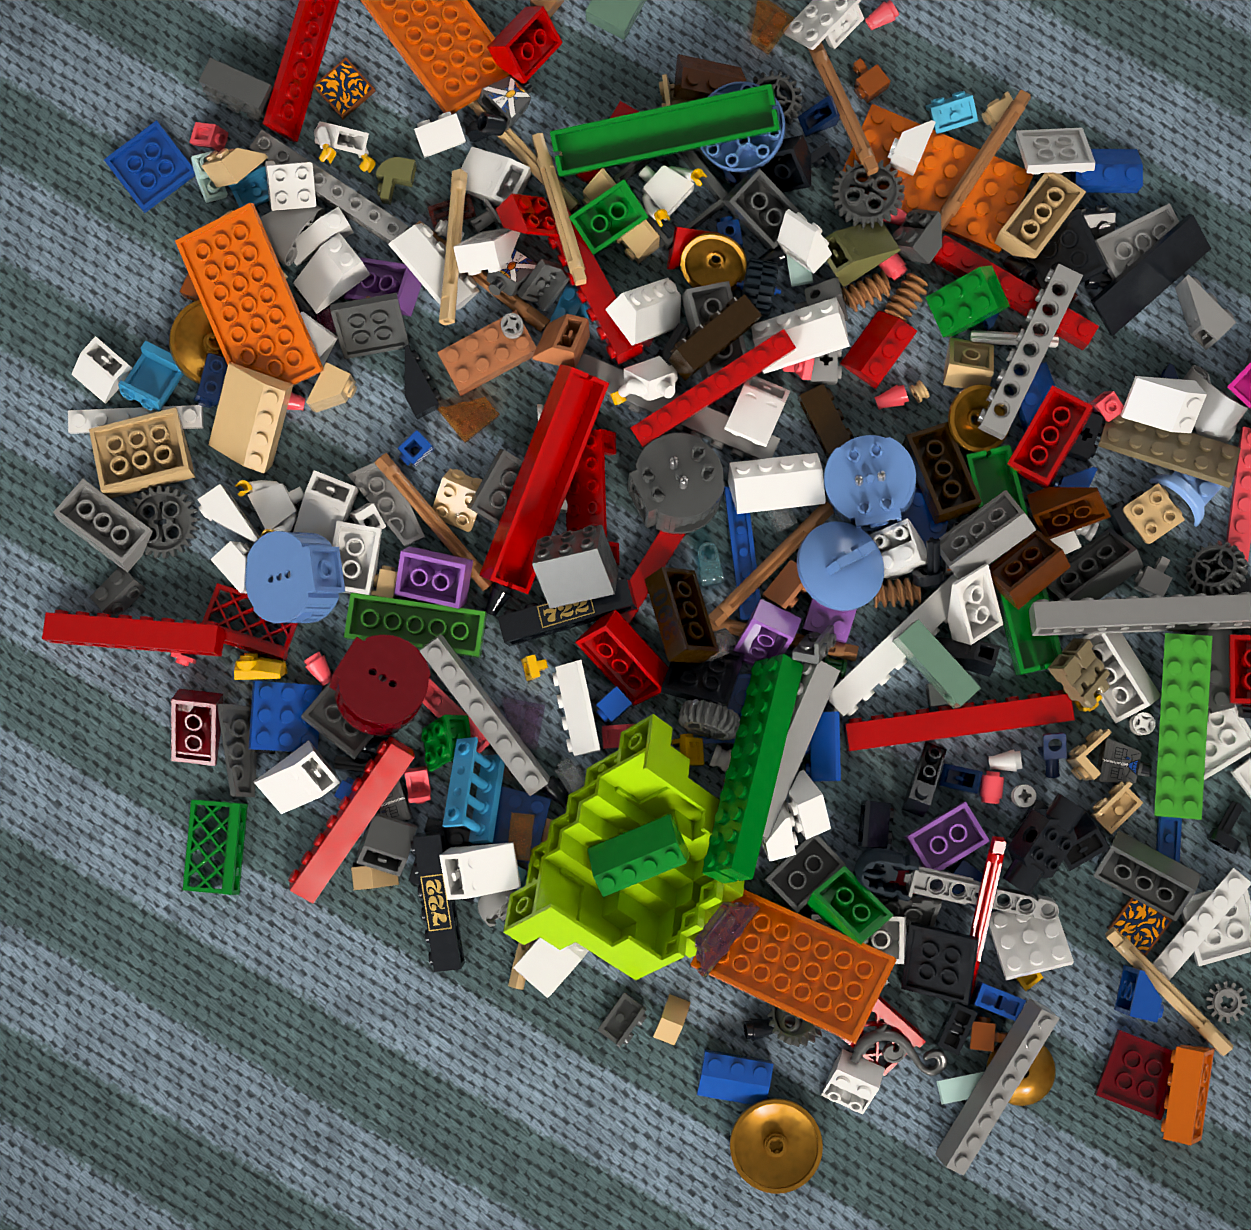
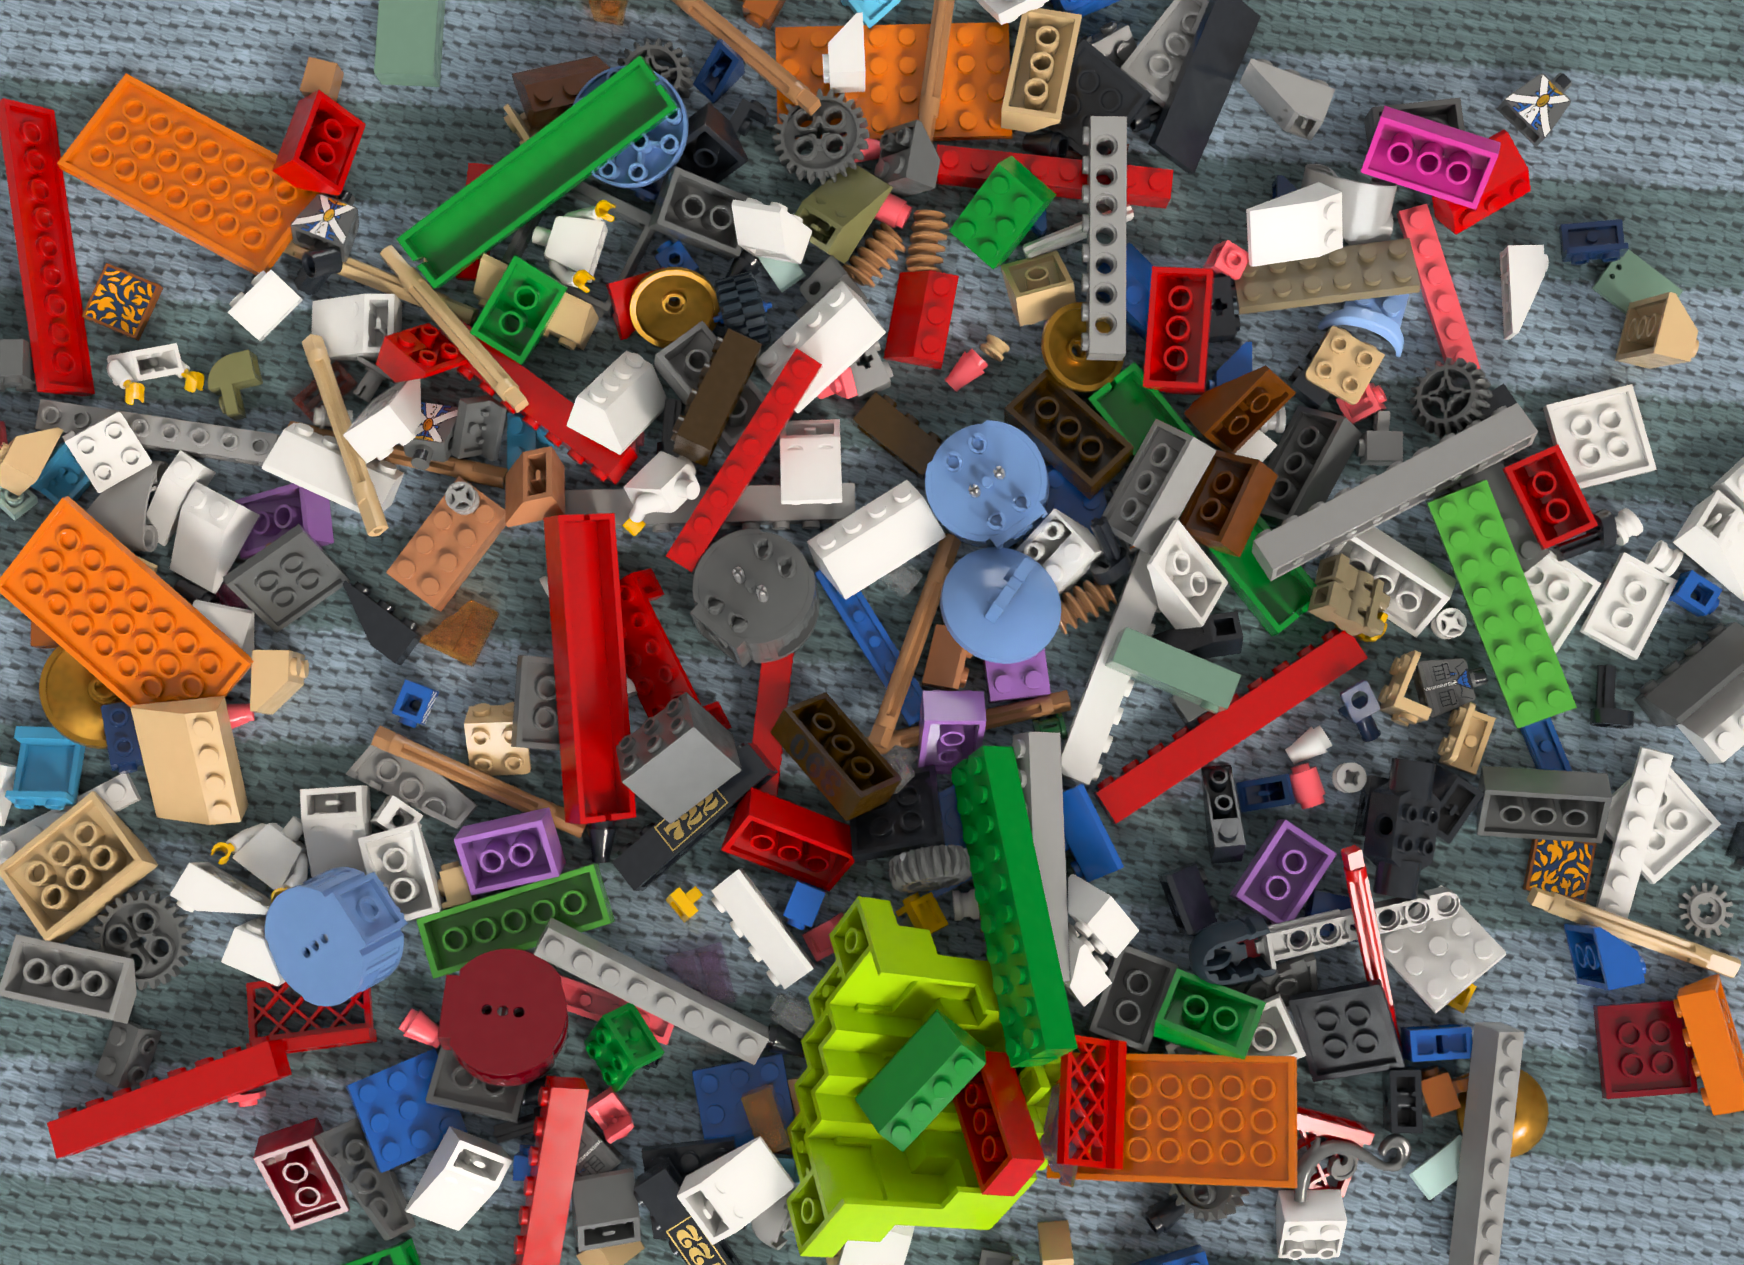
camera: 30 degrees left, 0 degrees up
(254, 667) = (345, 1065): yellow slope -> none
(487, 795) = (702, 1090): dark azure fence -> none
(674, 910) = (998, 1128): none -> red brick
(710, 569) = (845, 681): clear light blue piece -> none
(754, 930) = (1105, 1102): none -> red fence
(815, 646) = (1015, 717): dark grey bracket -> none
(1158, 548) = (1369, 404): none -> coral bracket

